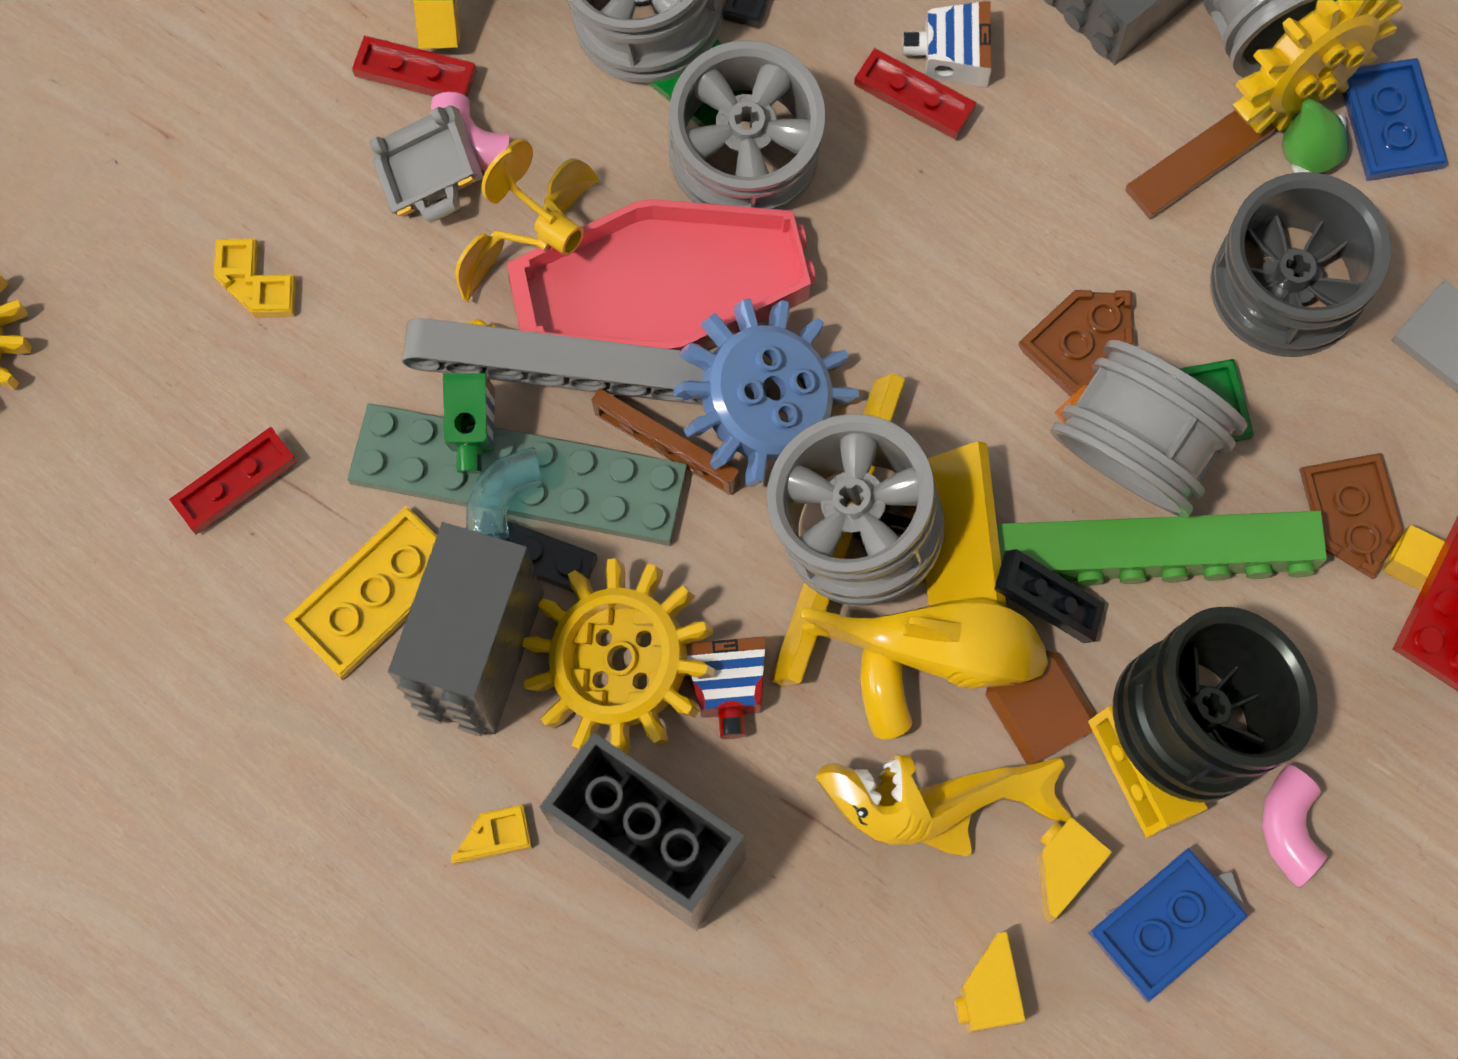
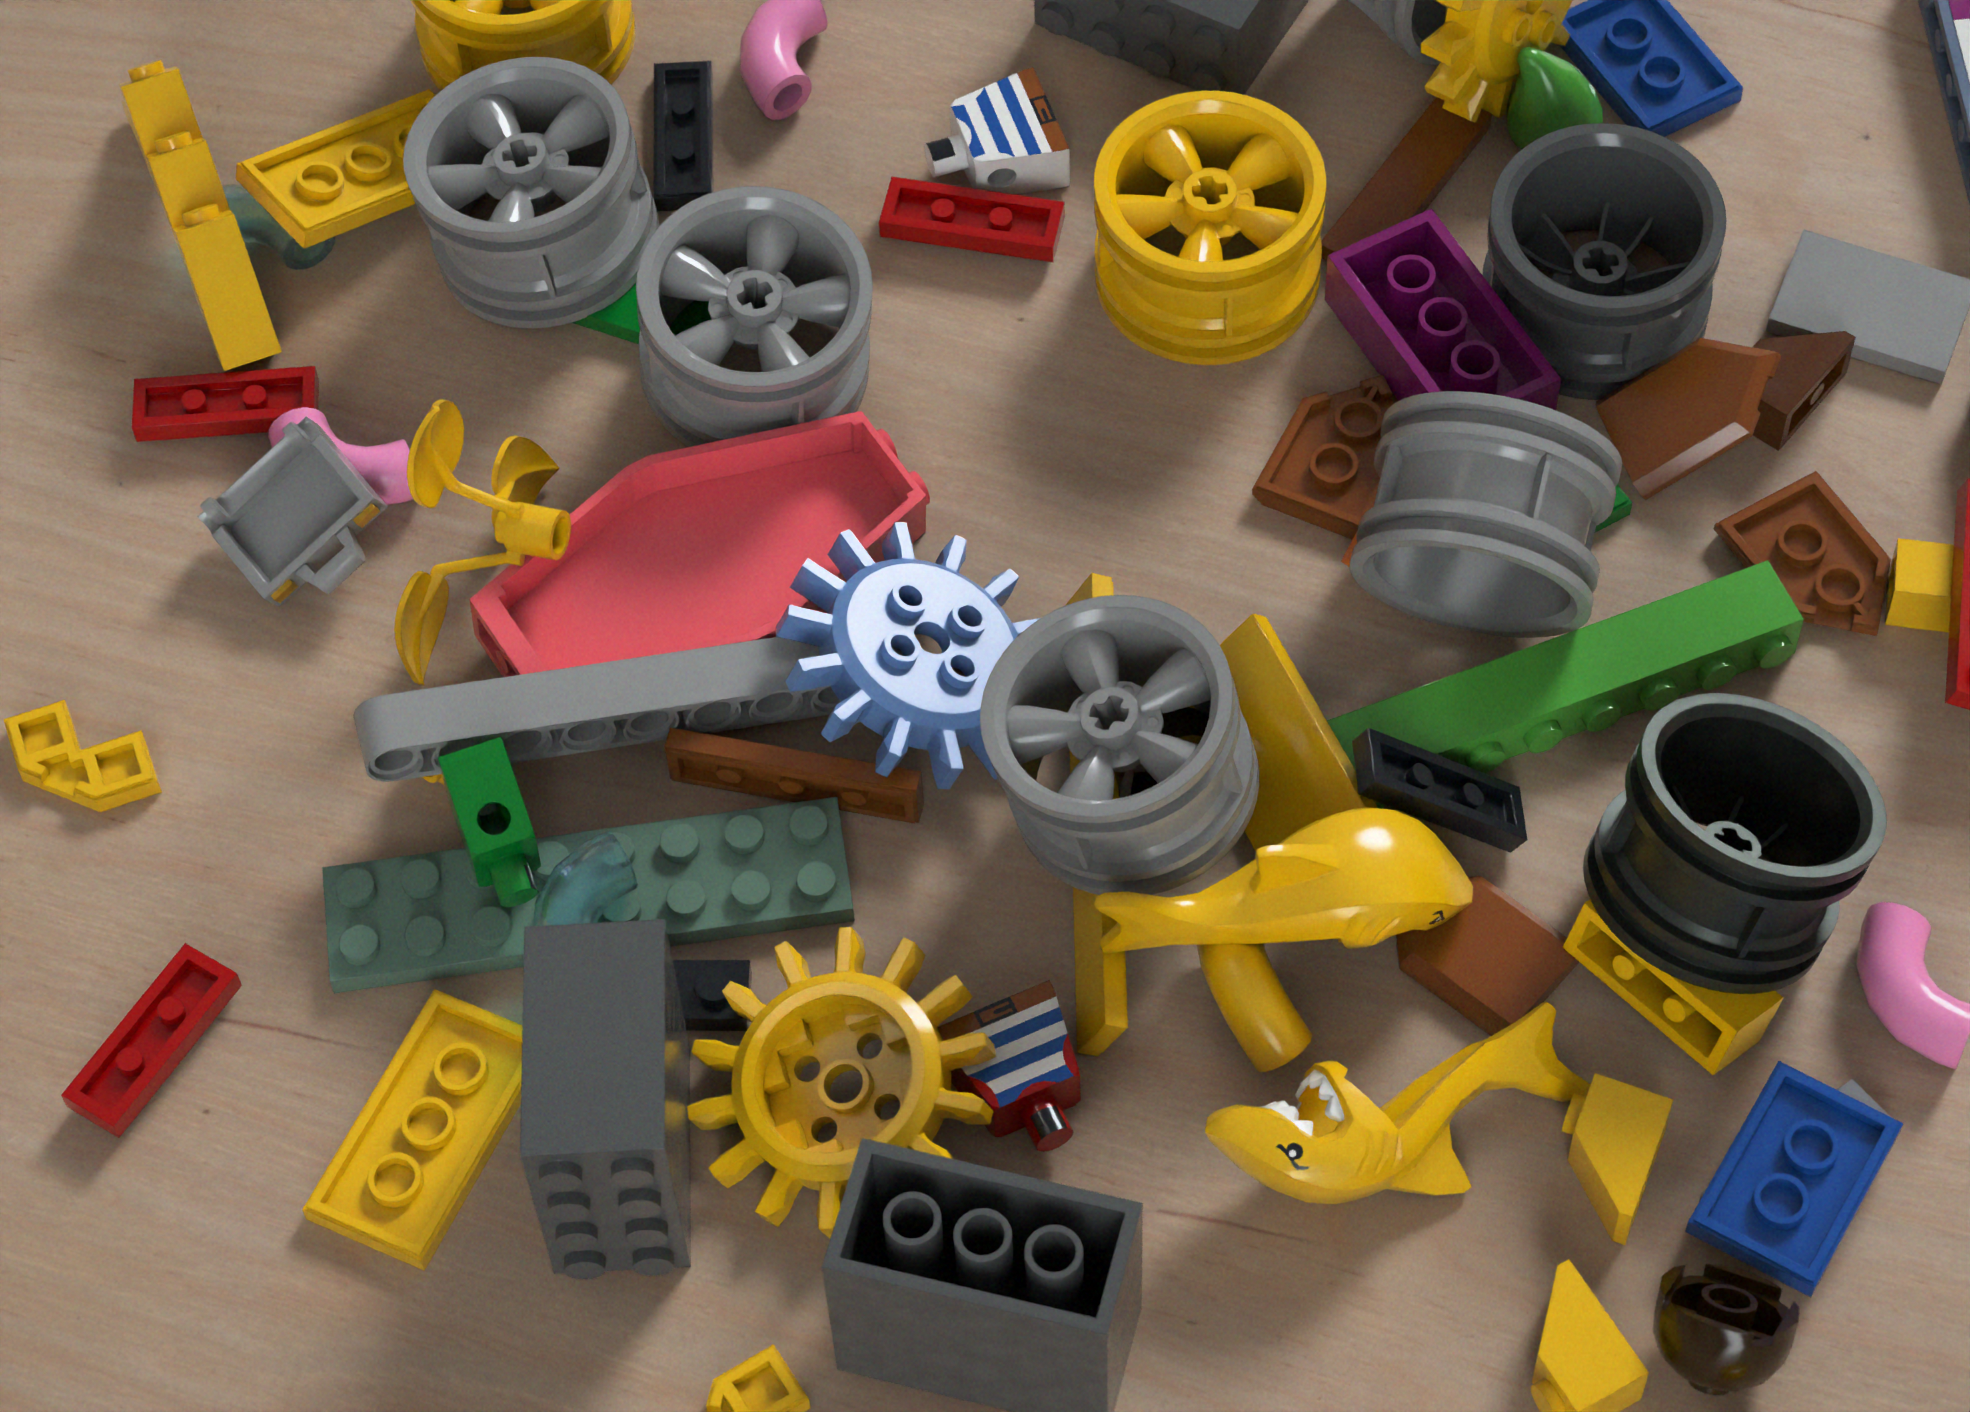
camera: 20 degrees left, 15 degrees down
(1075, 111) = (1209, 171): none -> yellow wheel
(1083, 1006) = (1723, 1327): none -> dark brown cylinder
(1177, 280) = (1433, 317): none -> magenta brick
(1313, 385) = (1686, 410): none -> dark orange tile
(1384, 384) = (1804, 377): none -> reddish brown slope

